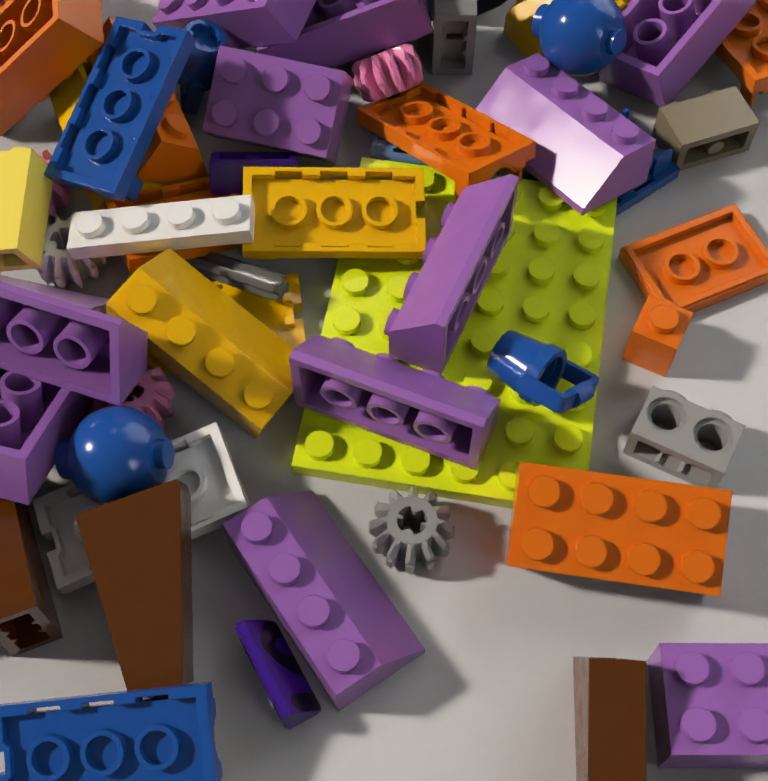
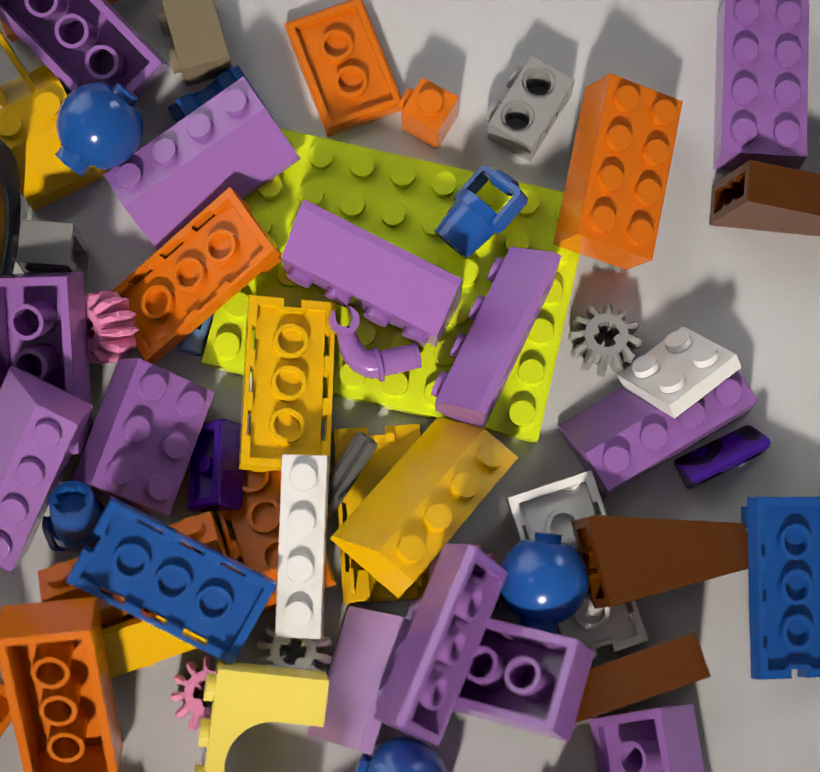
camera: 85 degrees left, 15 degrees up
(362, 284) = (372, 362): none -> medium lavender piece
(371, 605) = (679, 371): none -> white plate

